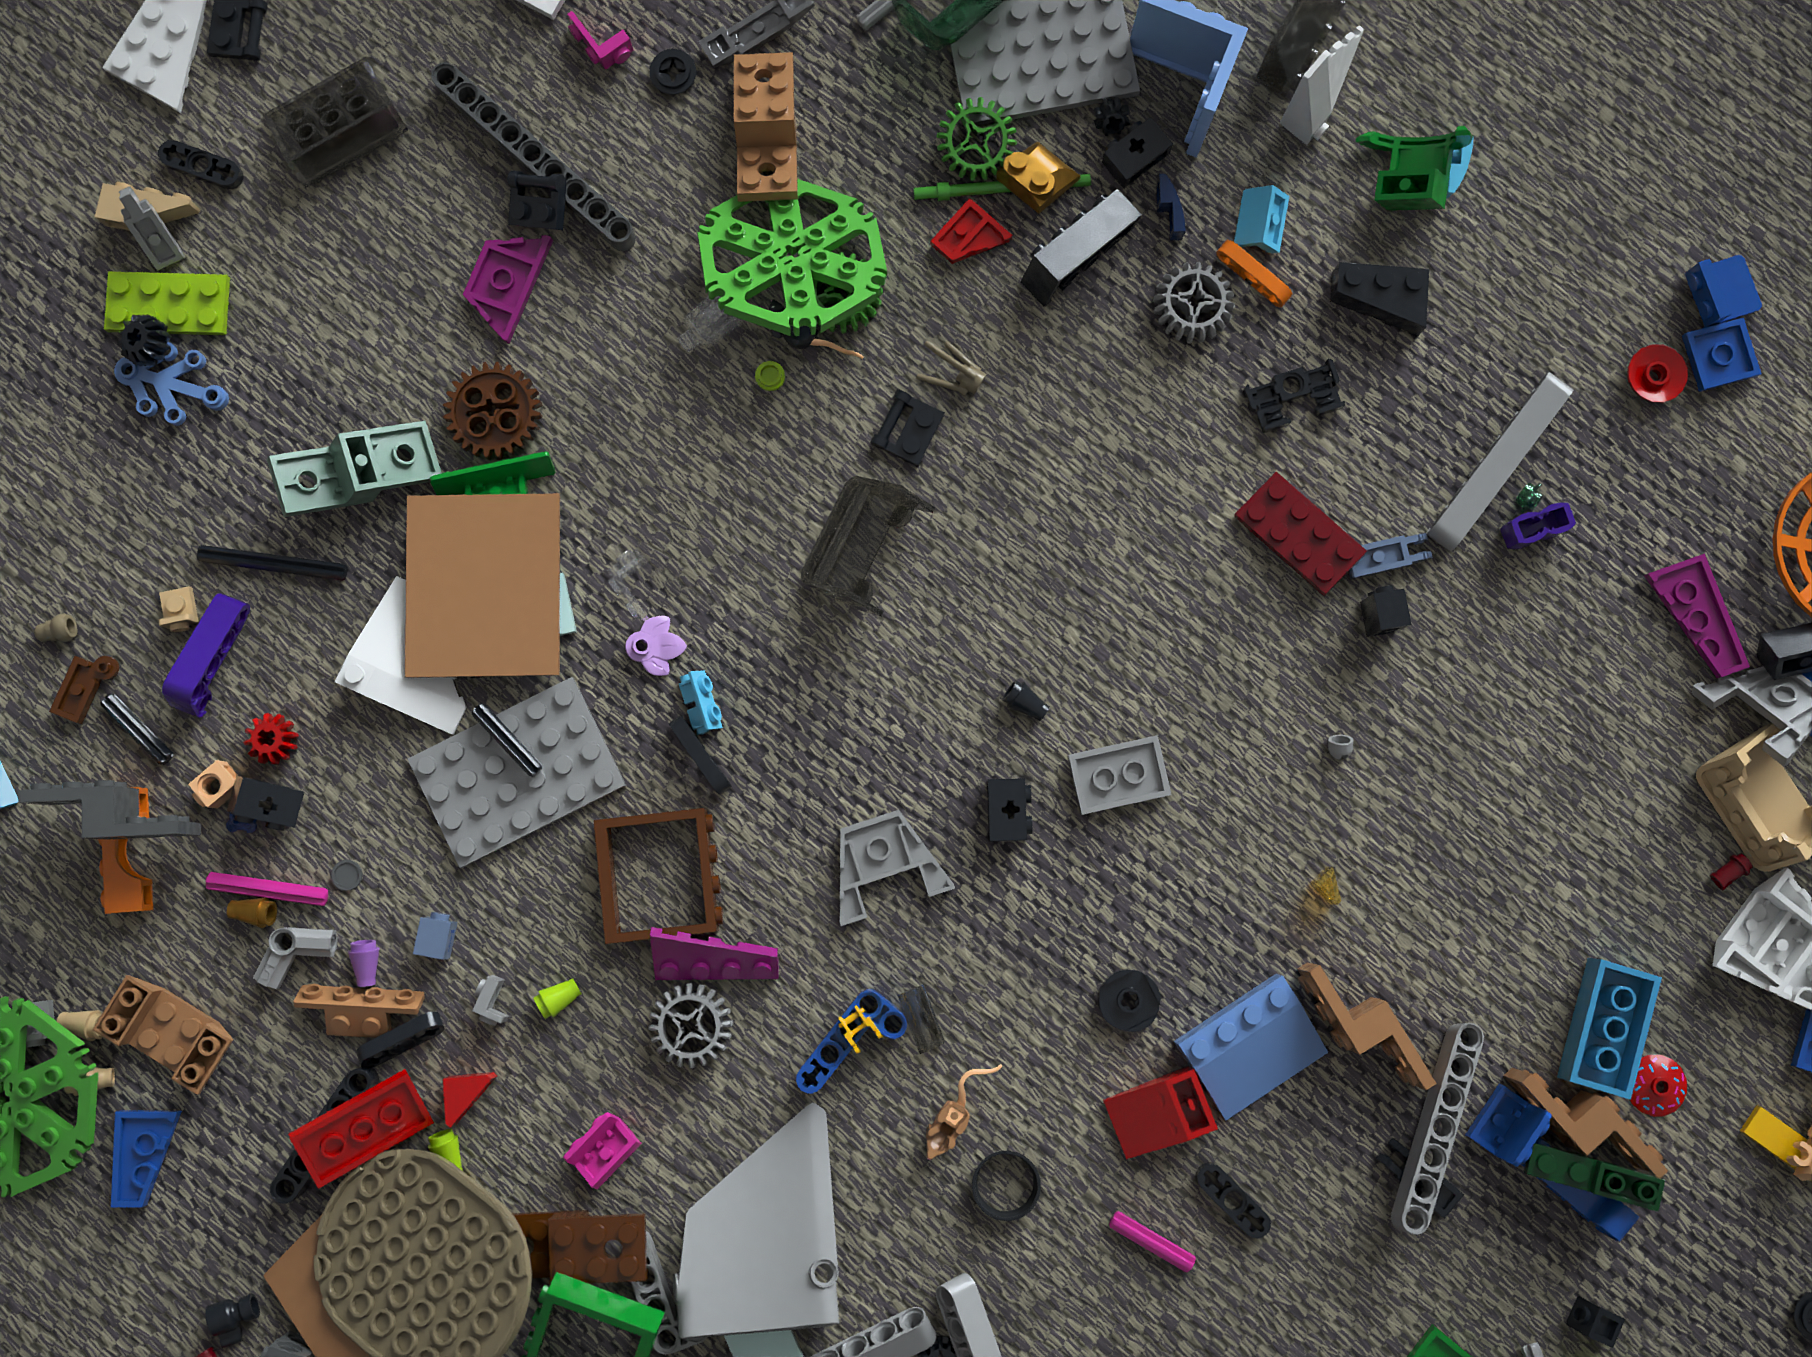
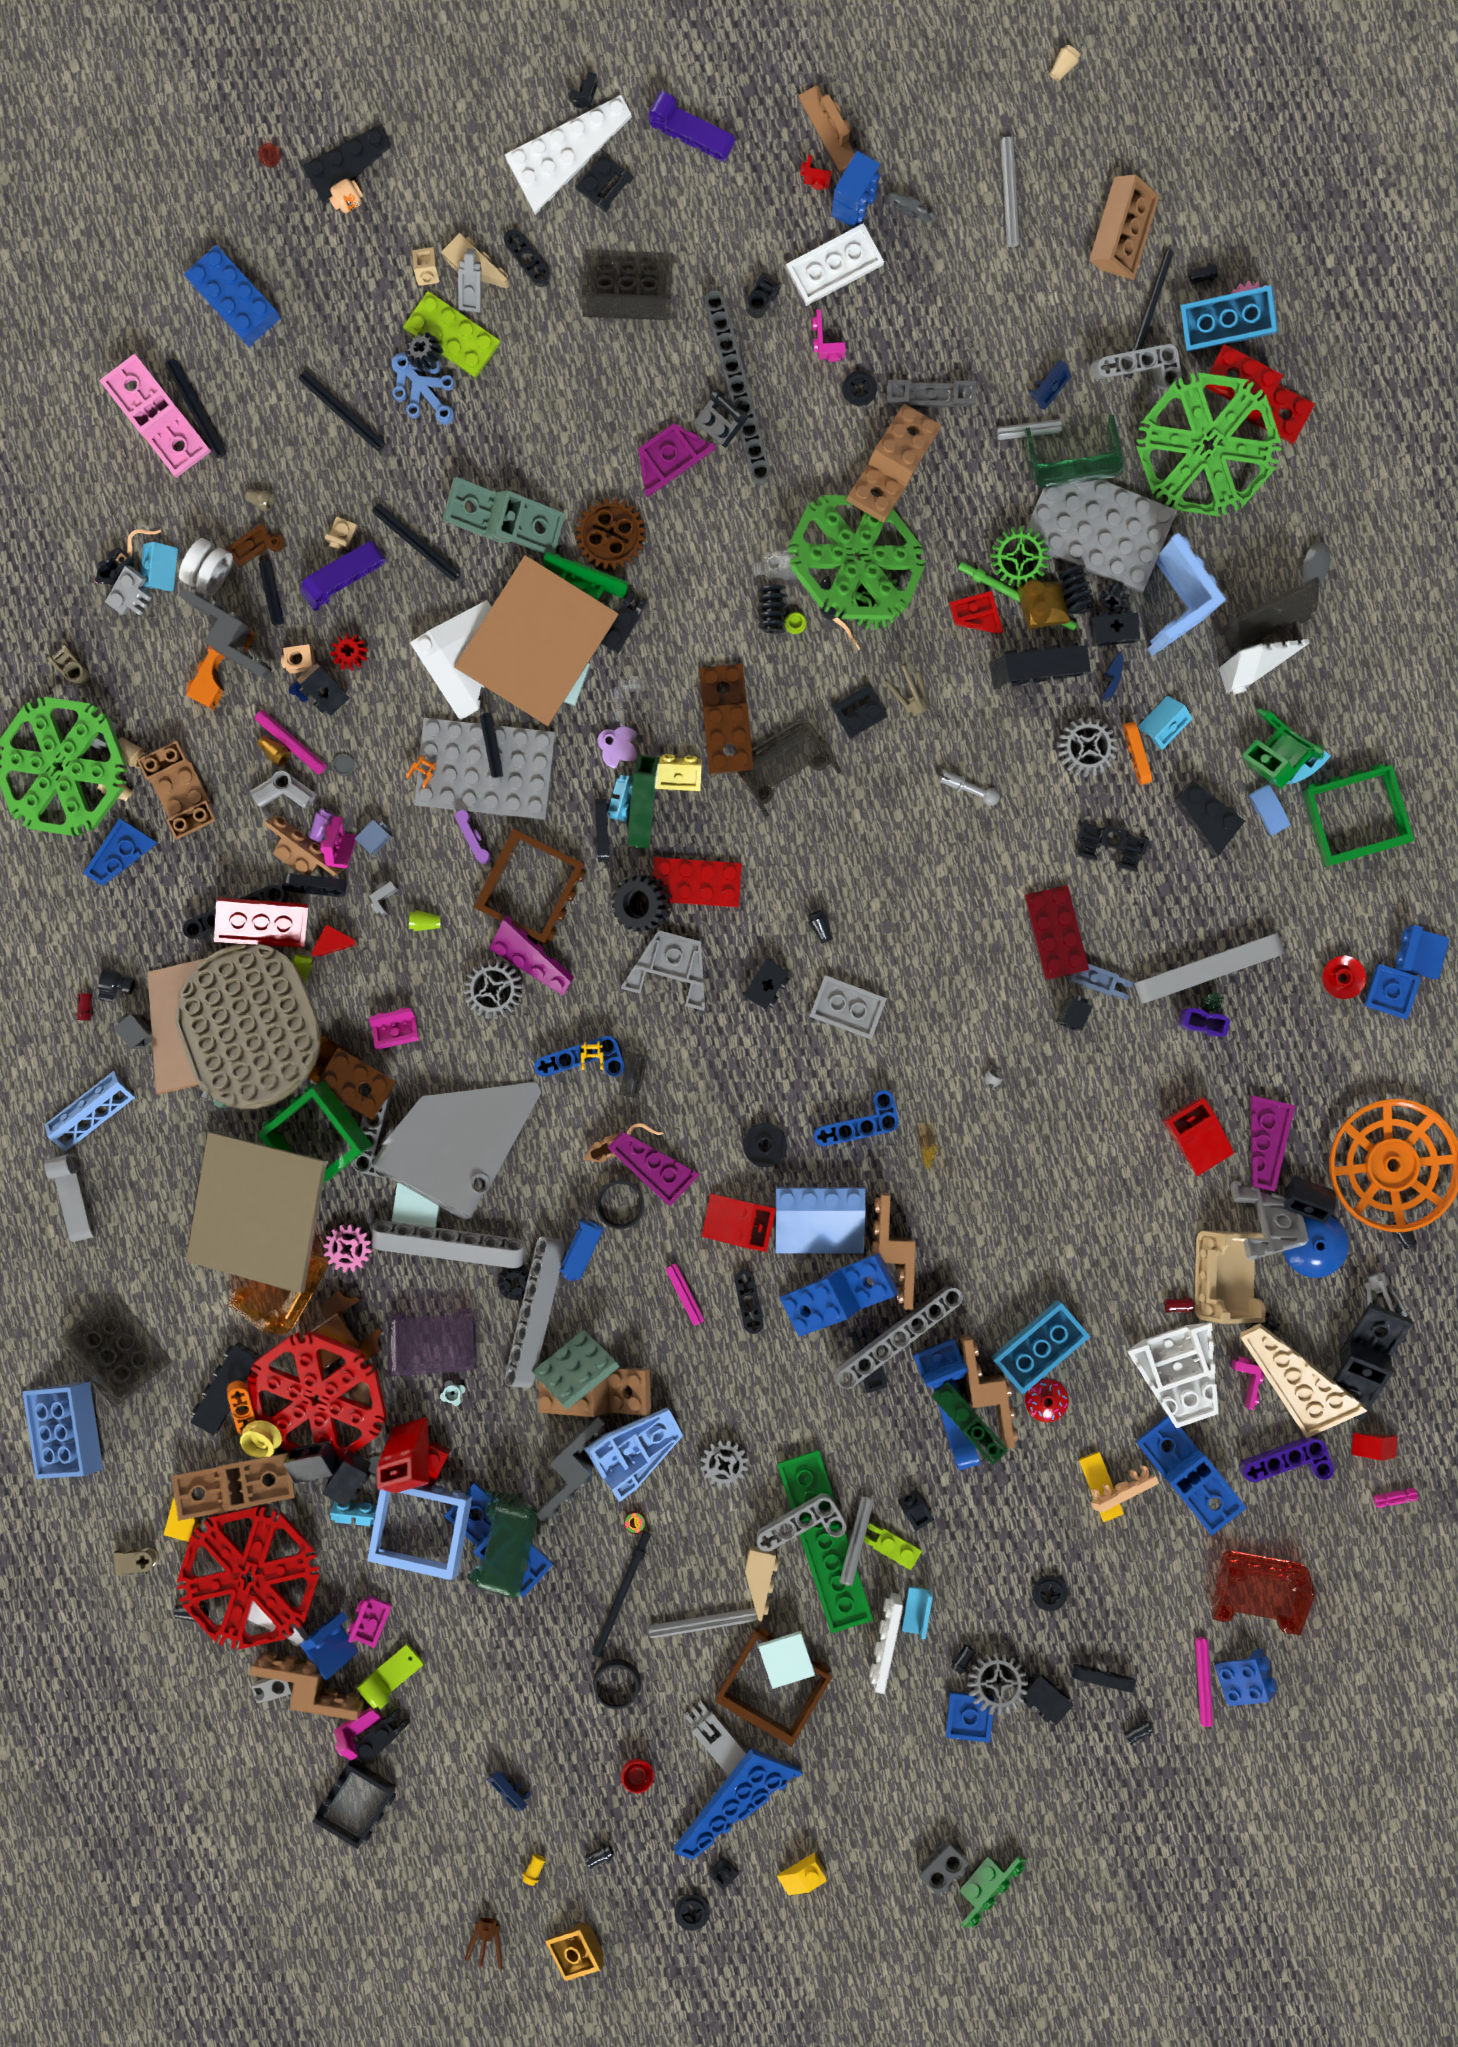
camera: 30 degrees right, 5 degrees up
(37, 748) = (205, 567): none -> white wheel
(88, 246) = (425, 266): none -> tan bracket
(91, 468) = (341, 410): none -> black axle
(397, 975) = (338, 845): none -> dark pink bracket
(433, 821) = (429, 774): none -> orange piece
(496, 34) = (764, 293): none -> black piece
(552, 861) = (472, 837): none -> medium lavender plate
(573, 503) = (623, 624): none -> black hinge
(726, 690) = (643, 801): none -> dark green slope
(731, 377) = (771, 609): none -> black piece
(746, 631) = (679, 773): none -> light yellow bracket
(762, 534) = (726, 719): none -> reddish brown bracket
(785, 825) = (626, 907): none -> black tyre
(848, 744) = (700, 881): none -> red plate
(996, 1272) = (581, 1250): none -> blue window
(1021, 1115) = (655, 1169): none -> magenta wing
(1064, 137) = (1076, 590): none -> black piece
(1120, 429) = (989, 796): none -> light grey pin
(1218, 906) = (854, 1124): none -> blue beam
(1336, 1123) = (839, 1295): none -> blue bracket
(1444, 240) = (1270, 809): none -> medium blue slope
(1582, 146) = (1395, 800): none -> green window
(1618, 659) = (1198, 1135): none -> red slope

